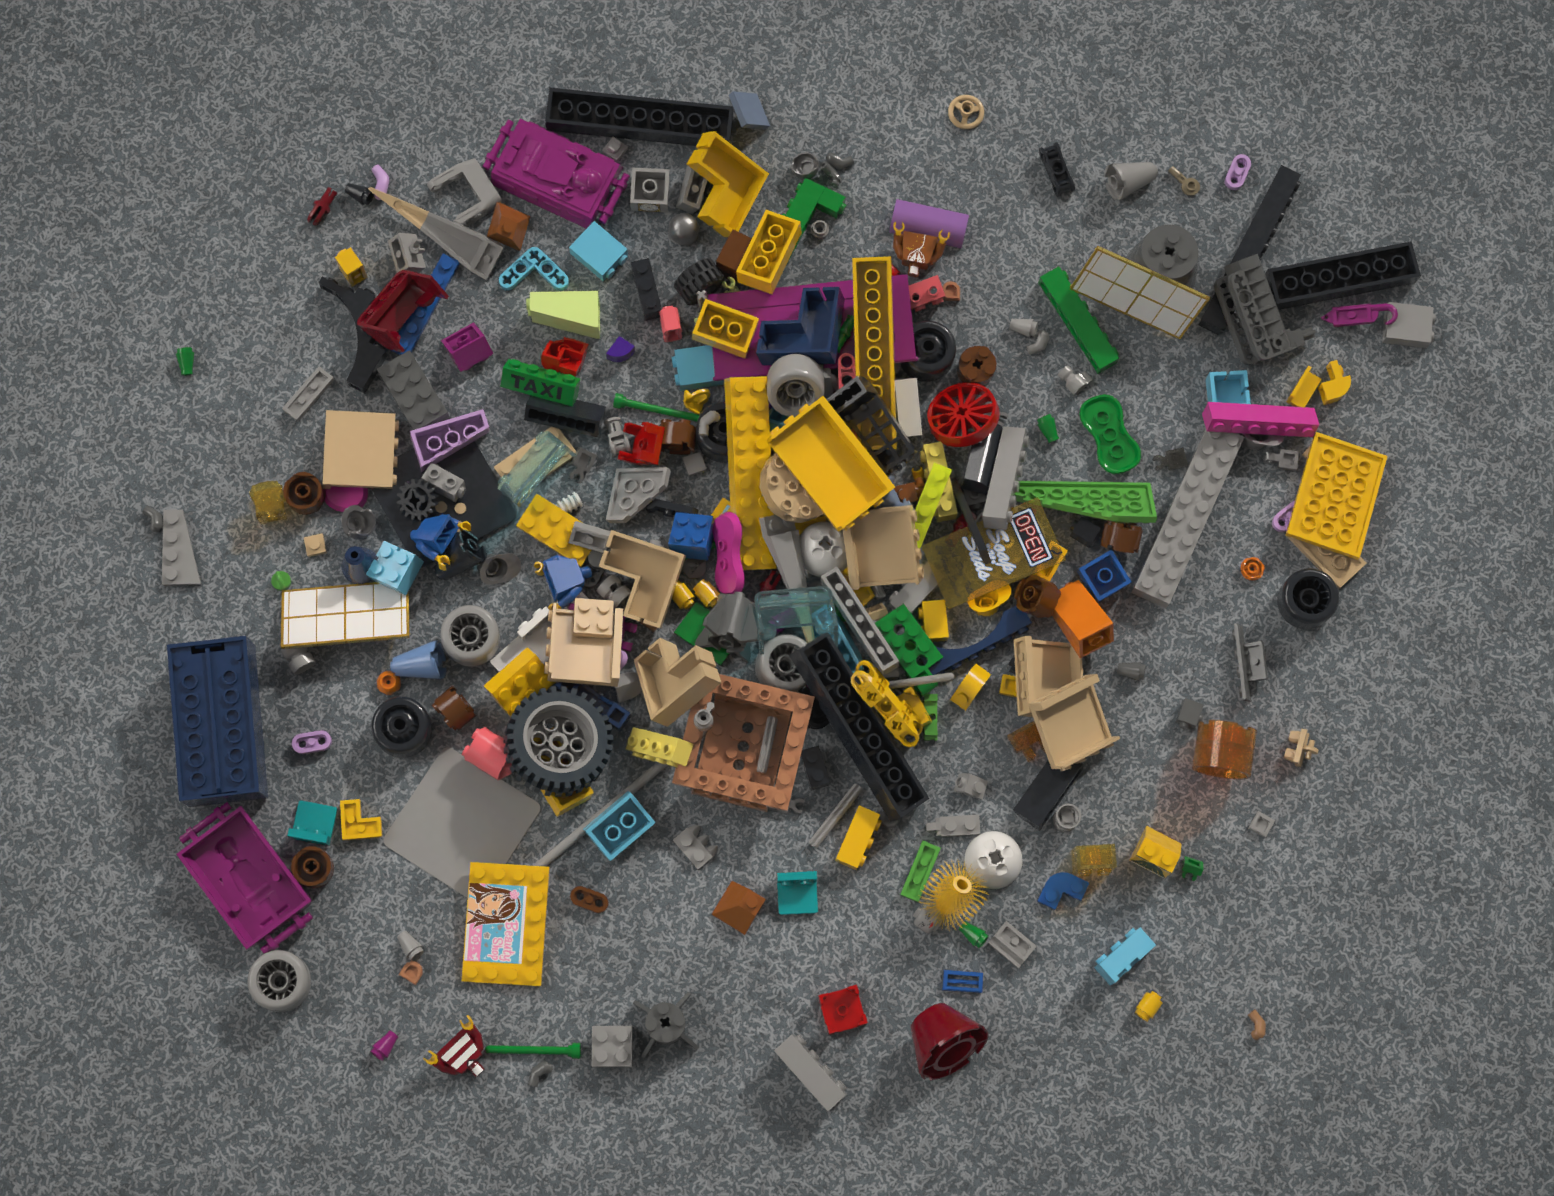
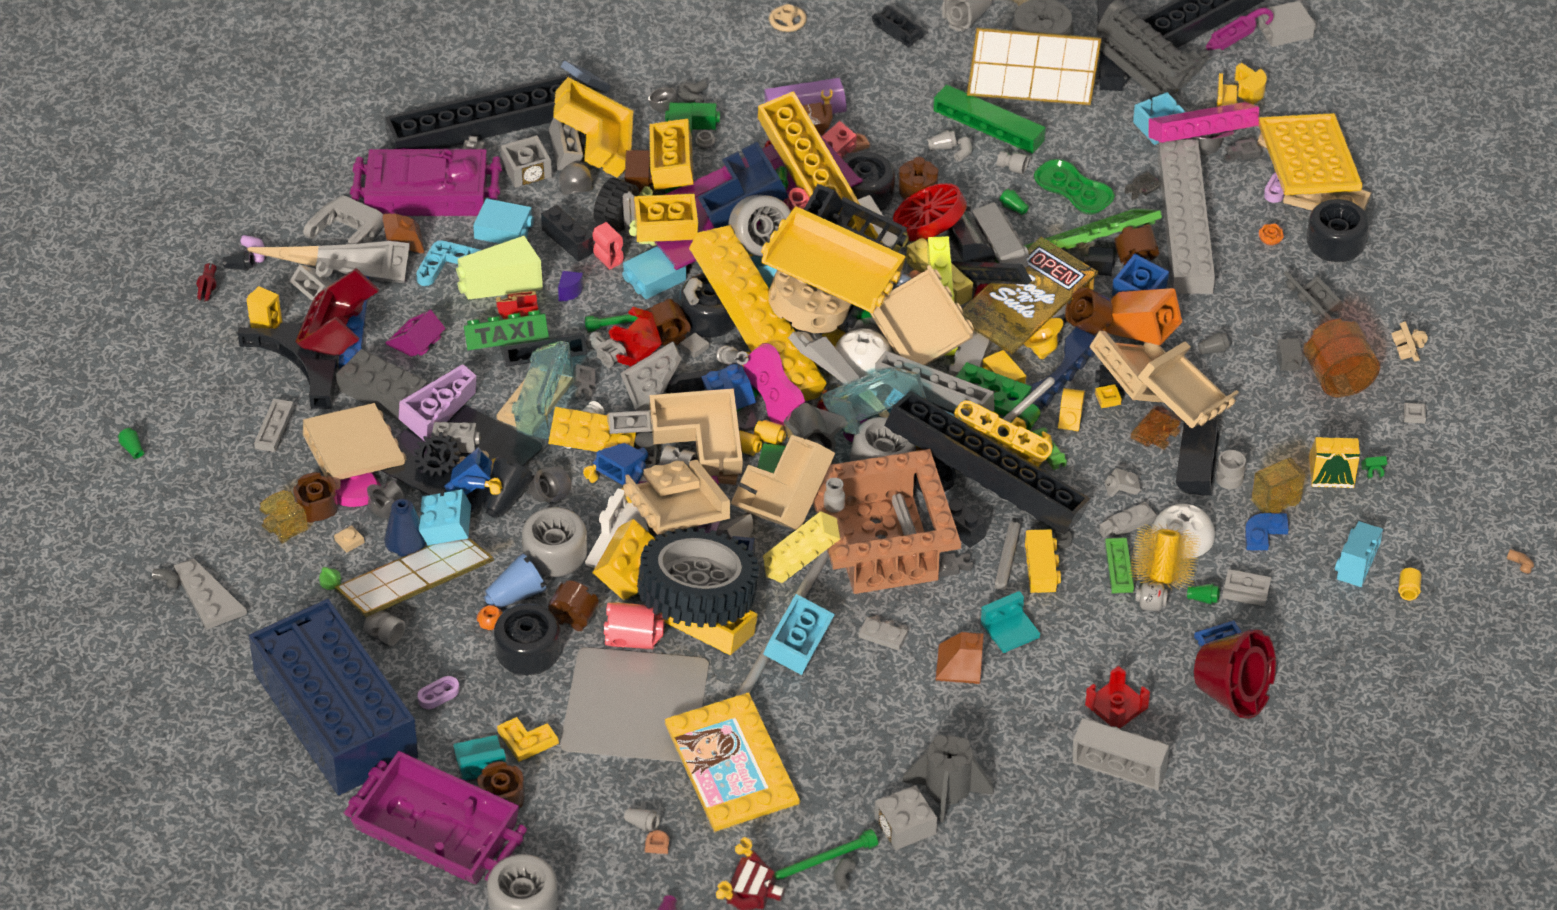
camera: 20 degrees left, 30 degrees down
(589, 900) = (804, 711): reddish brown plate -> none
(695, 401) = (659, 290): yellow piece -> none
(712, 504) = (731, 355): none -> light grey pin

